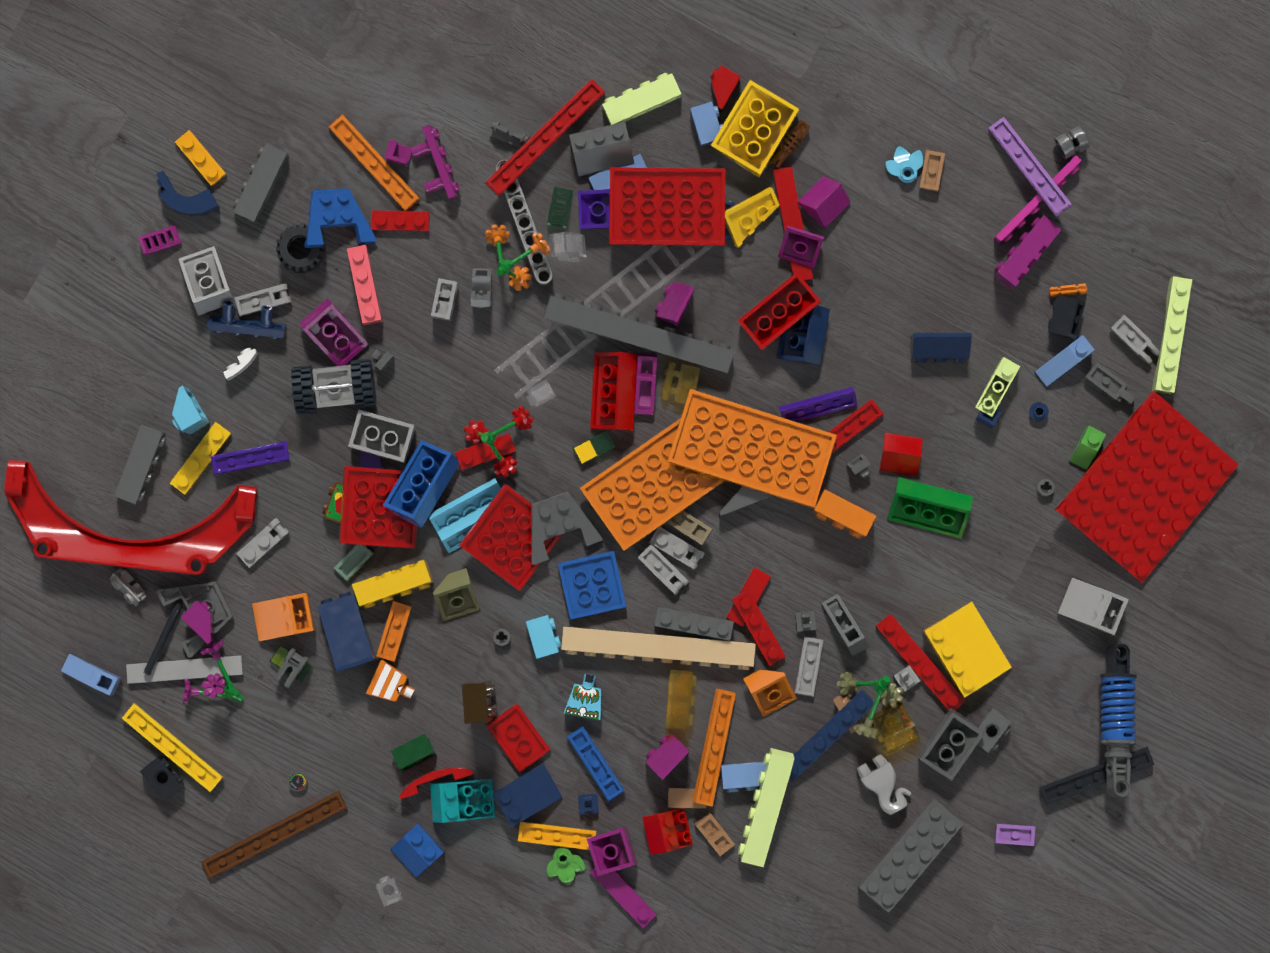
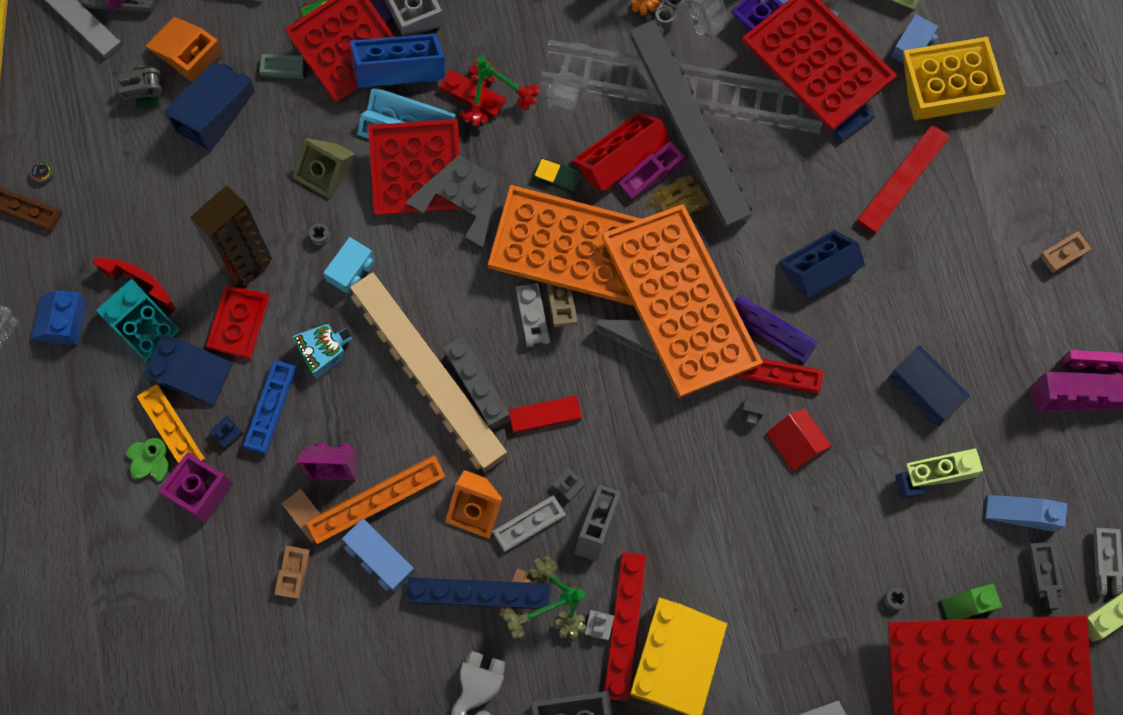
camera: 45 degrees right, 15 degrees down
(215, 683) = (58, 23): magenta plant -> none
(389, 683) = (195, 173): torso -> none
(393, 583) = (289, 107): yellow wedge -> none
(394, 631) = (246, 143): orange plate -> none
(413, 752) = (147, 243): dark green hinge -> none
(592, 585) = (433, 270): blue plate -> none
(626, 897) = (162, 541): magenta plate -> none
(662, 568) = (502, 317): light grey plate -> none
(667, 830) = (259, 523): red slope -> none
(674, 304) = (745, 136): magenta slope -> none
(680, 699) = (393, 427): clear yellow slope -> none
(723, 85) = (960, 27): red slope -> none
(747, 215) = (877, 134): yellow wing -> none
(758, 627) = (524, 445): red plate -> none
(766, 807) = (358, 593): yellowish green brick -> none
(779, 311) = (823, 218): red slope -> none
(790, 143) = (968, 119): reddish brown hinge -> none
(800, 246) = (895, 194): magenta slope -> none
(825, 201) = (950, 187): magenta slope -> none
(843, 514) = (698, 429): orange brick -> none
(894, 729) = (539, 654): clear yellow slope -> none
(905, 162) = (1047, 225): medium azure plate -> none
(930, 508) = (776, 506): green slope -> none
(1034, 416) = (950, 531): dark blue plate -> none
(1066, 317) = (1065, 476): black brick -> none
(1068, 290) = (1087, 460): orange axle -> none

